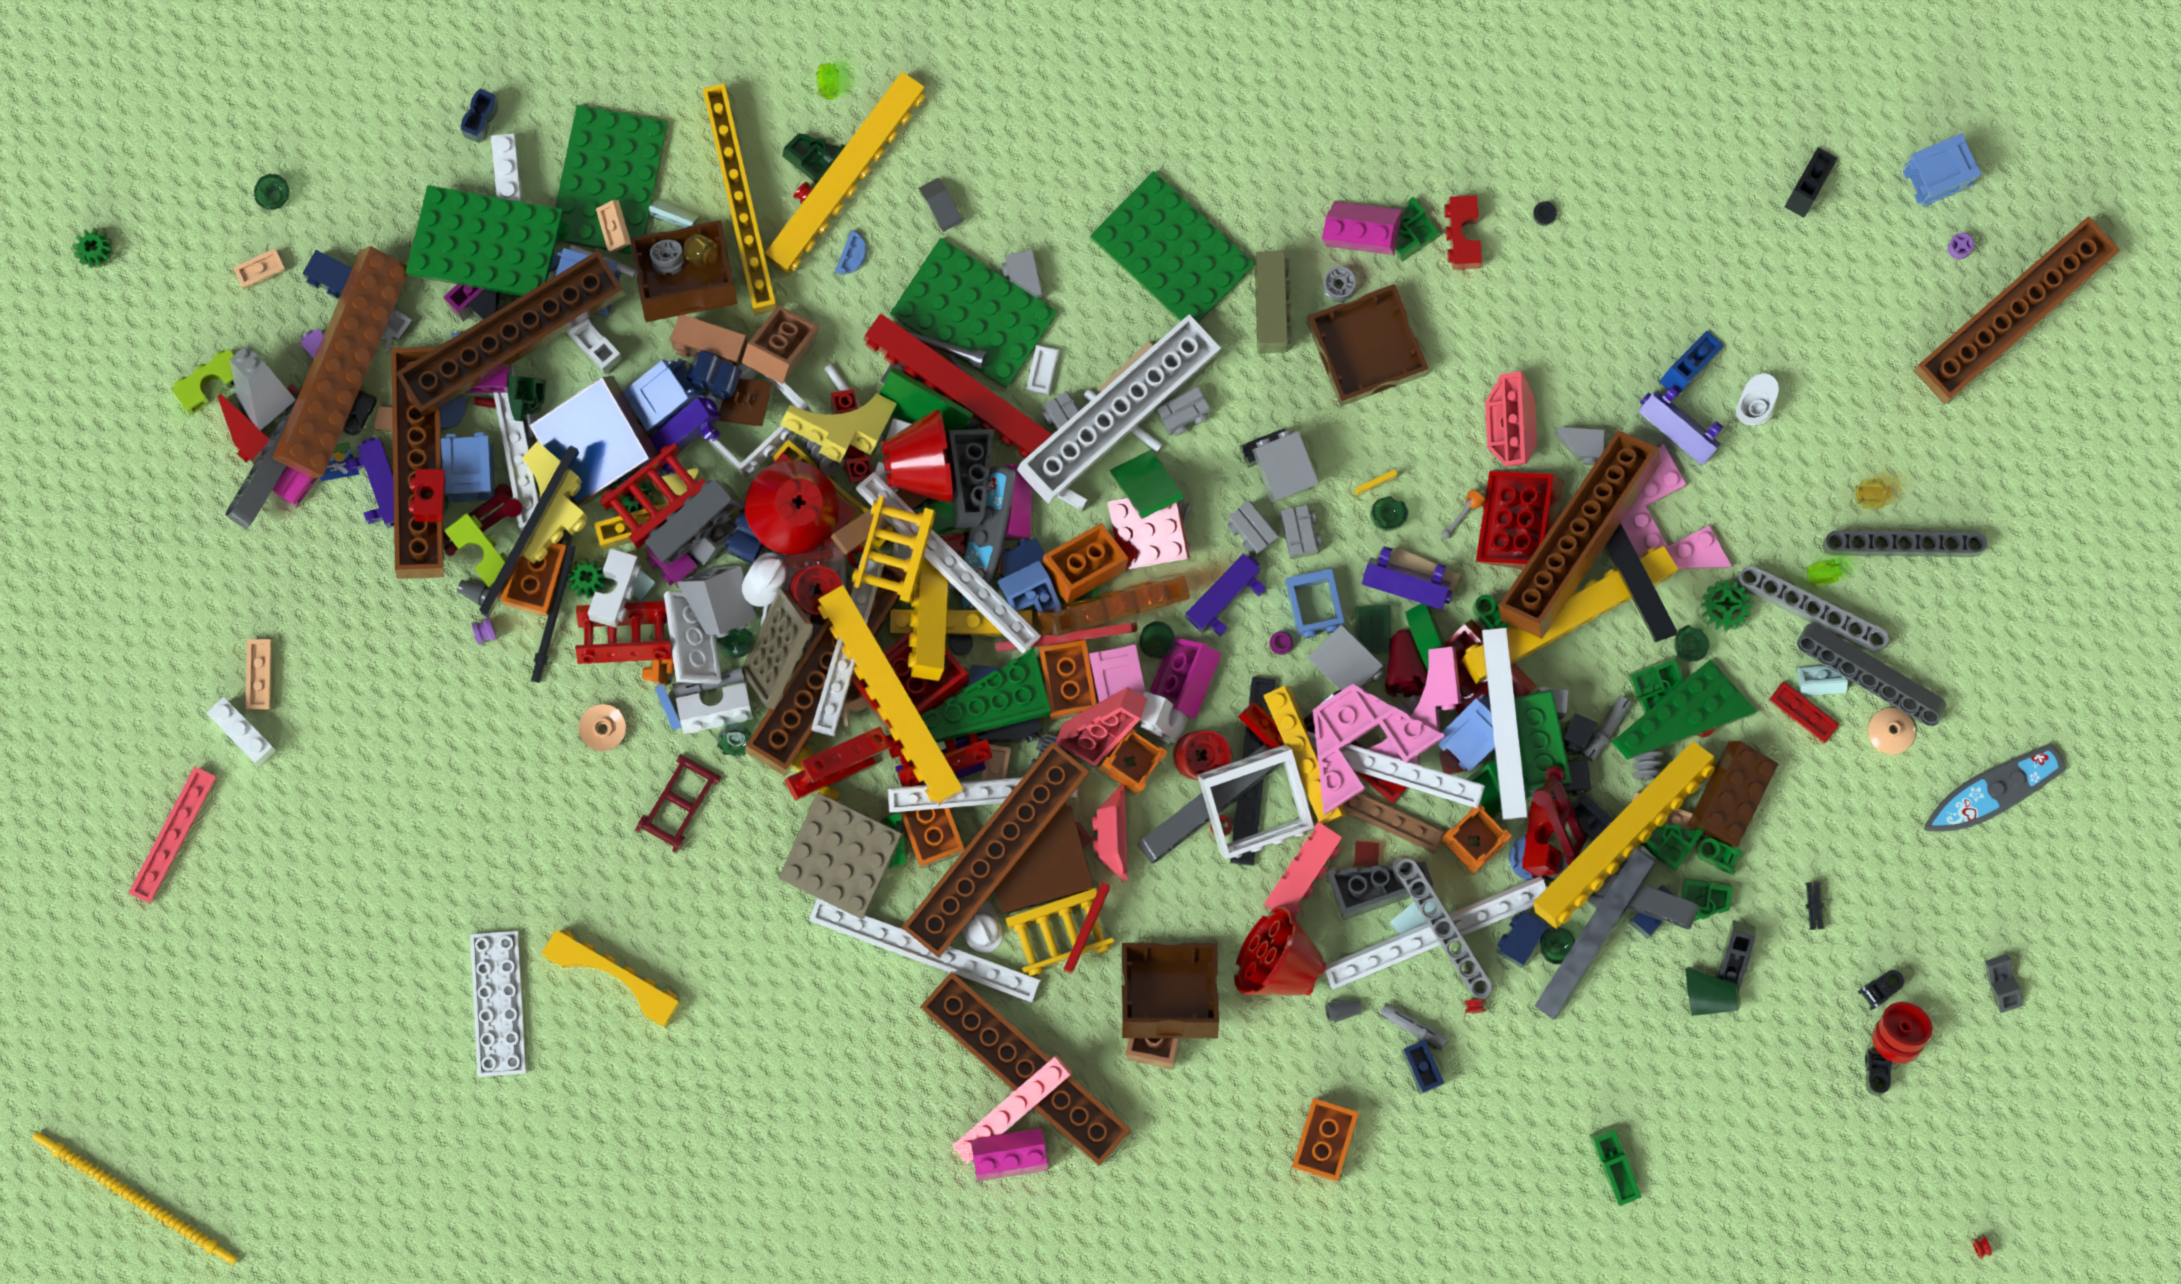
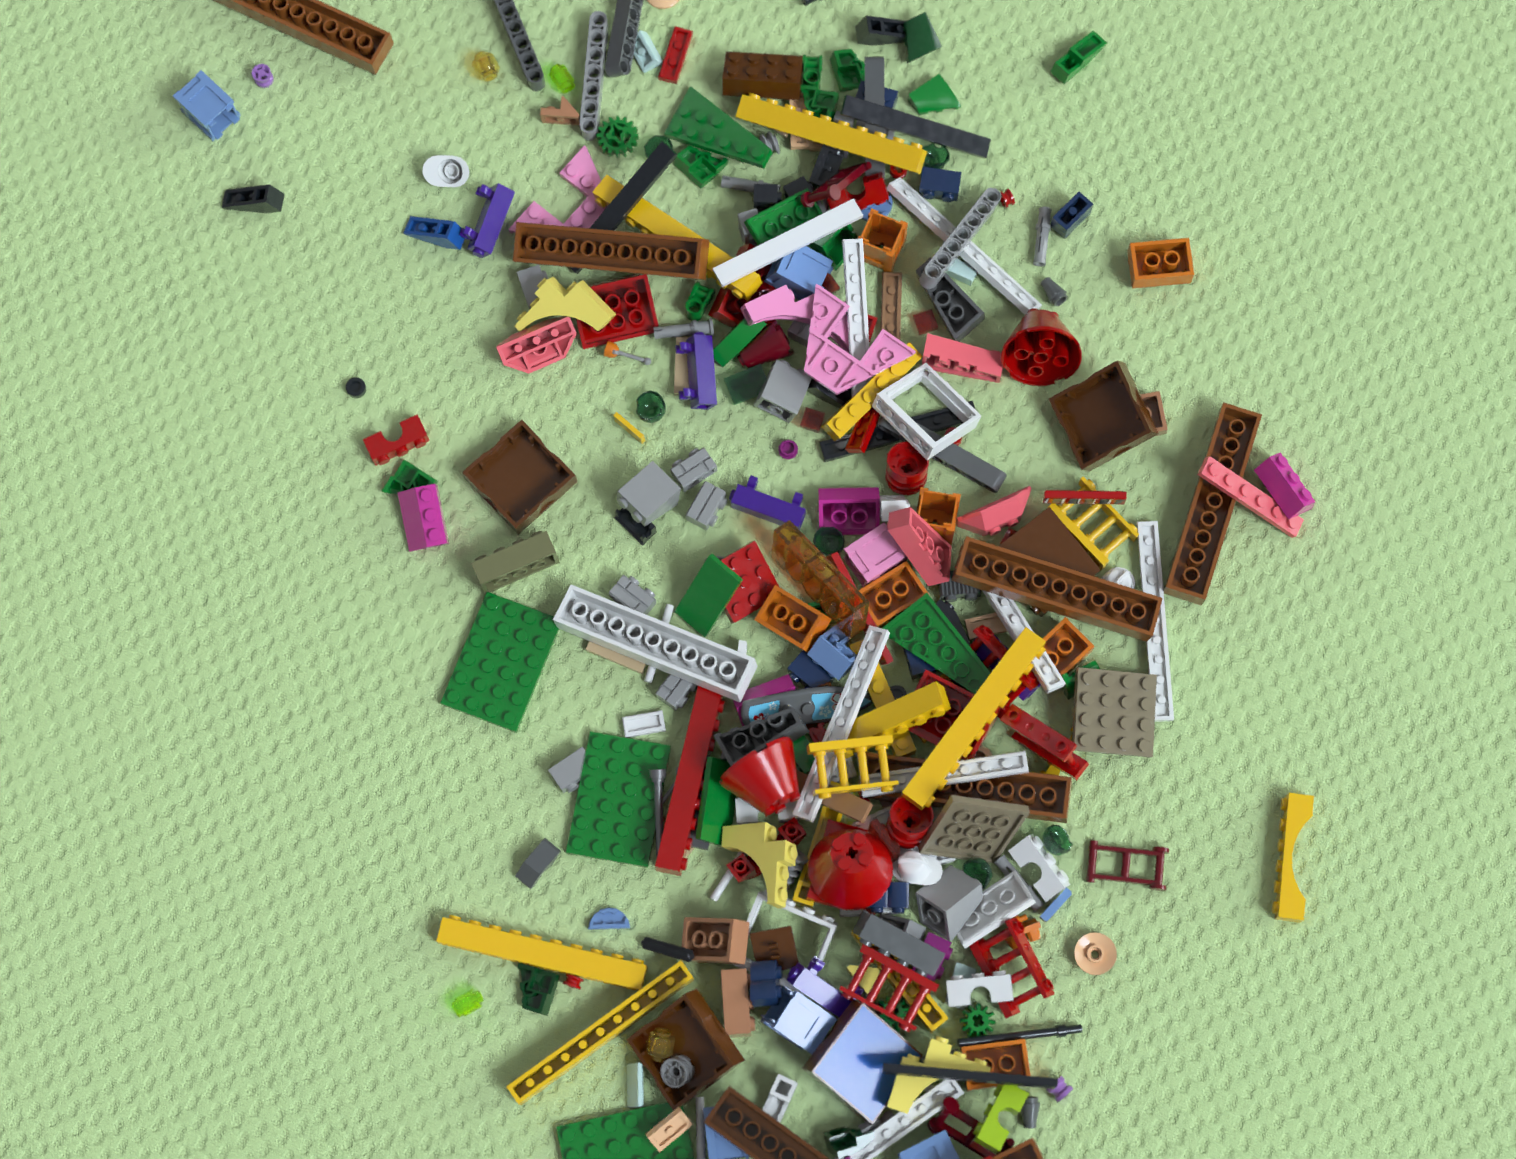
camera: 105 degrees left, 5 degrees down
(498, 1004) = (1356, 941): white plate -> none
(793, 296) = (668, 949): none -> black axle
(1303, 682) = (812, 420): none -> clear red plate
(1307, 580) = (737, 457): medium blue window -> none
(1347, 279) = (469, 519): light grey wheel -> none
(1462, 597) = (684, 329): none -> light grey pin
(1536, 472) = (576, 302): none -> light yellow arch
(1632, 979) = (933, 97): none -> green slope
(1777, 559) = (565, 115): none -> nougat slope

